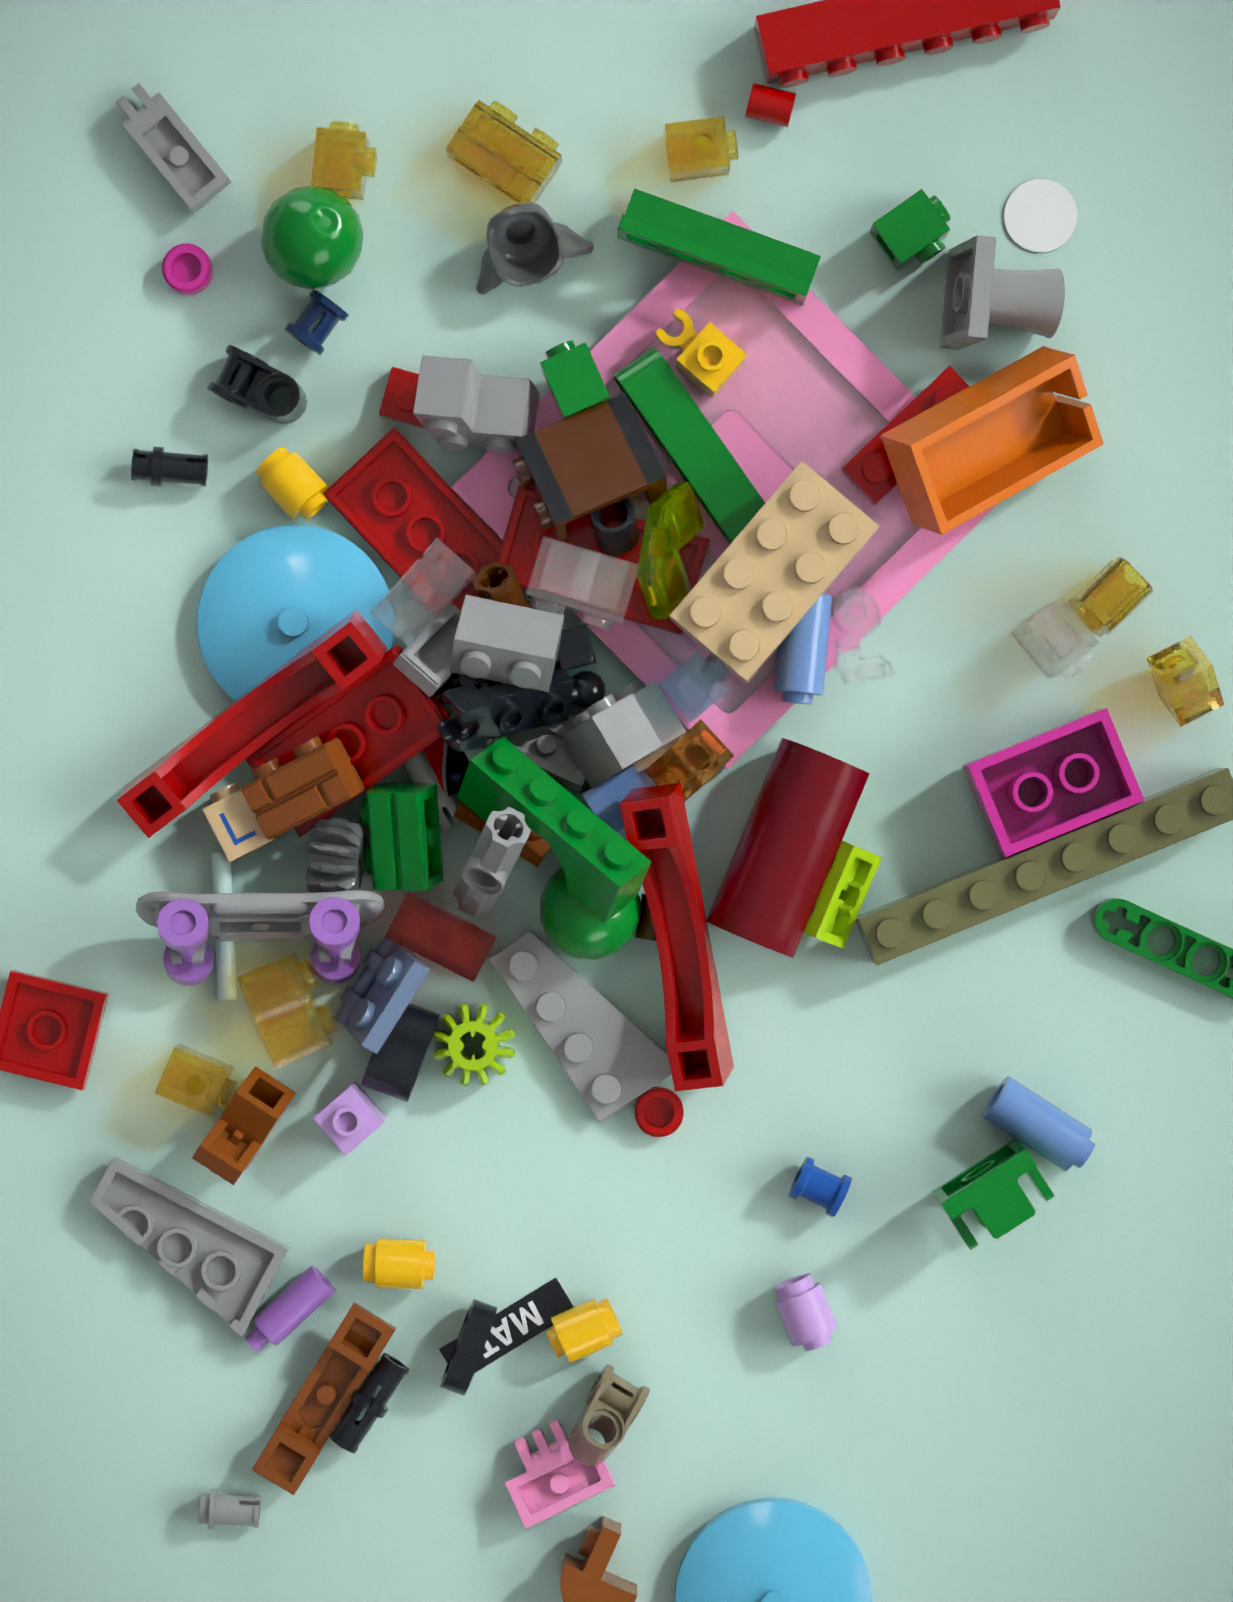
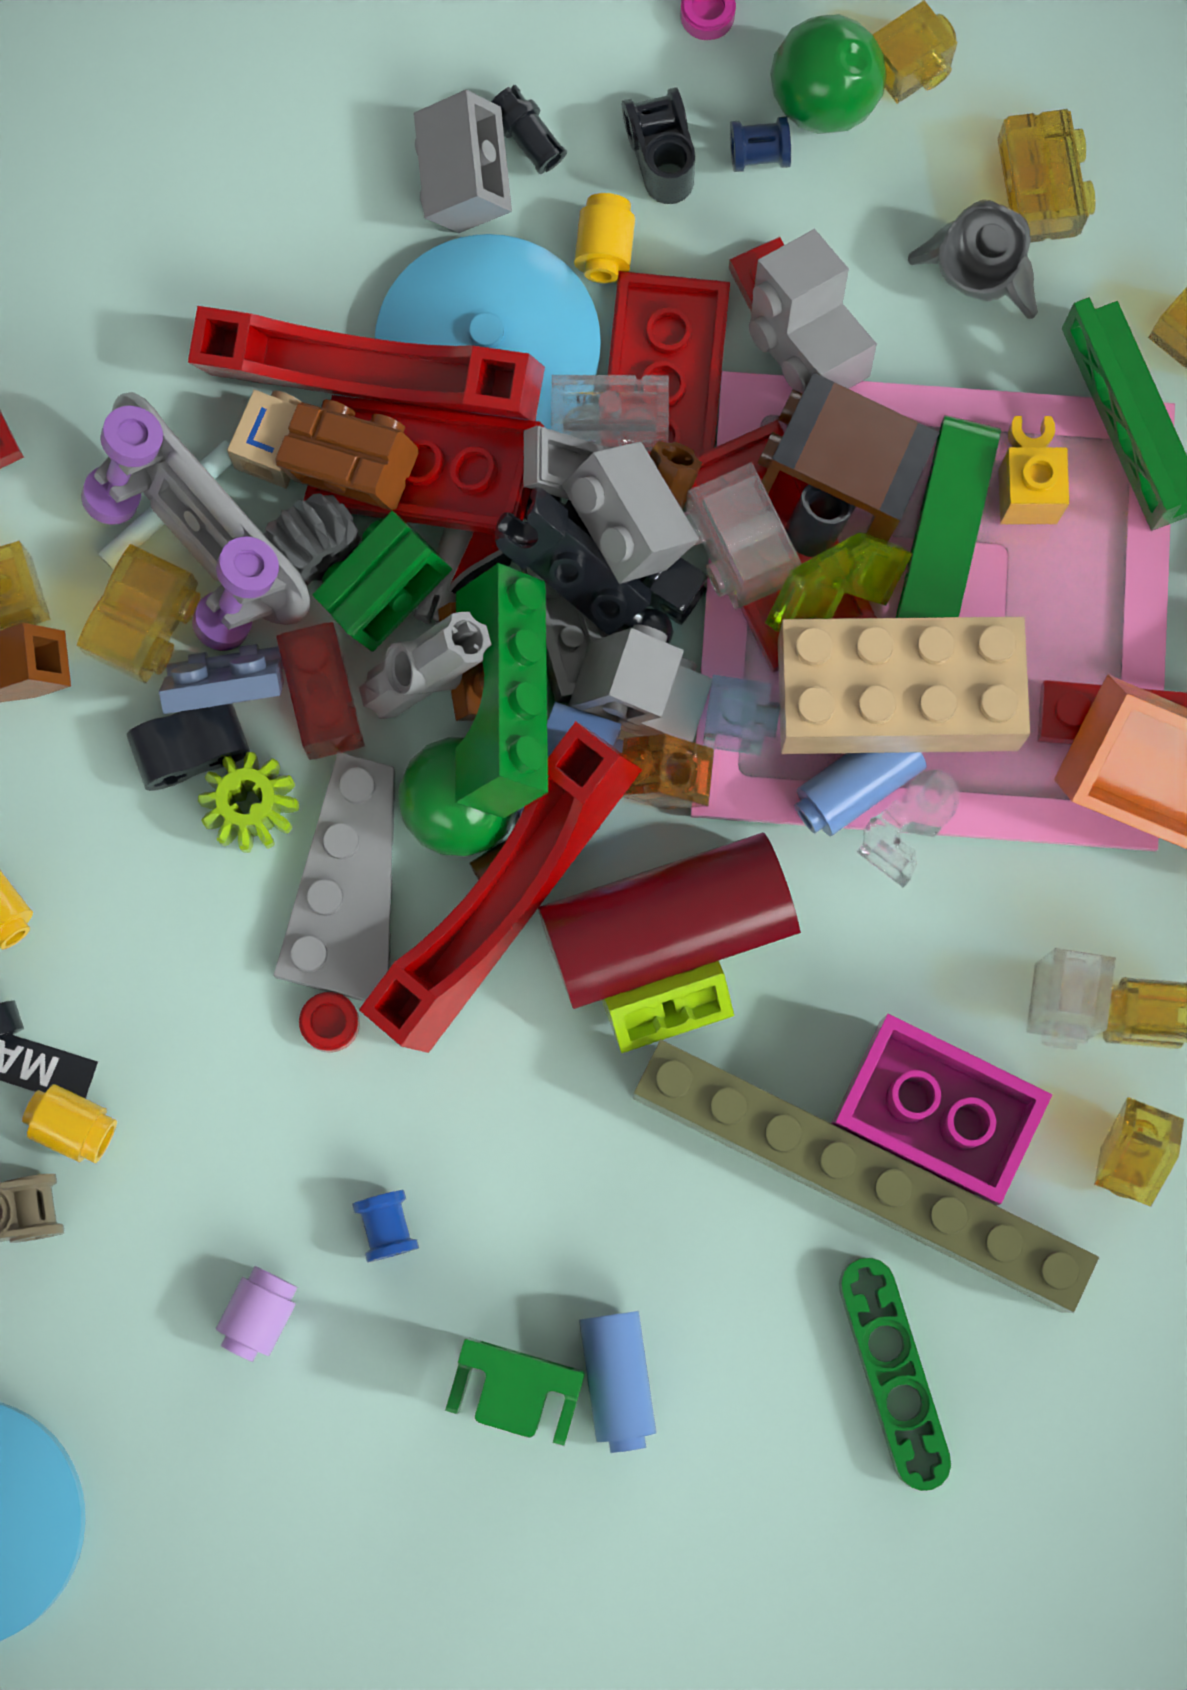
camera: 45 degrees right, 10 degrees down
(159, 534) = (462, 161): none -> light grey brick
(350, 1118) = (87, 749): lavender brick -> none
(573, 378) = (911, 378): green brick -> none

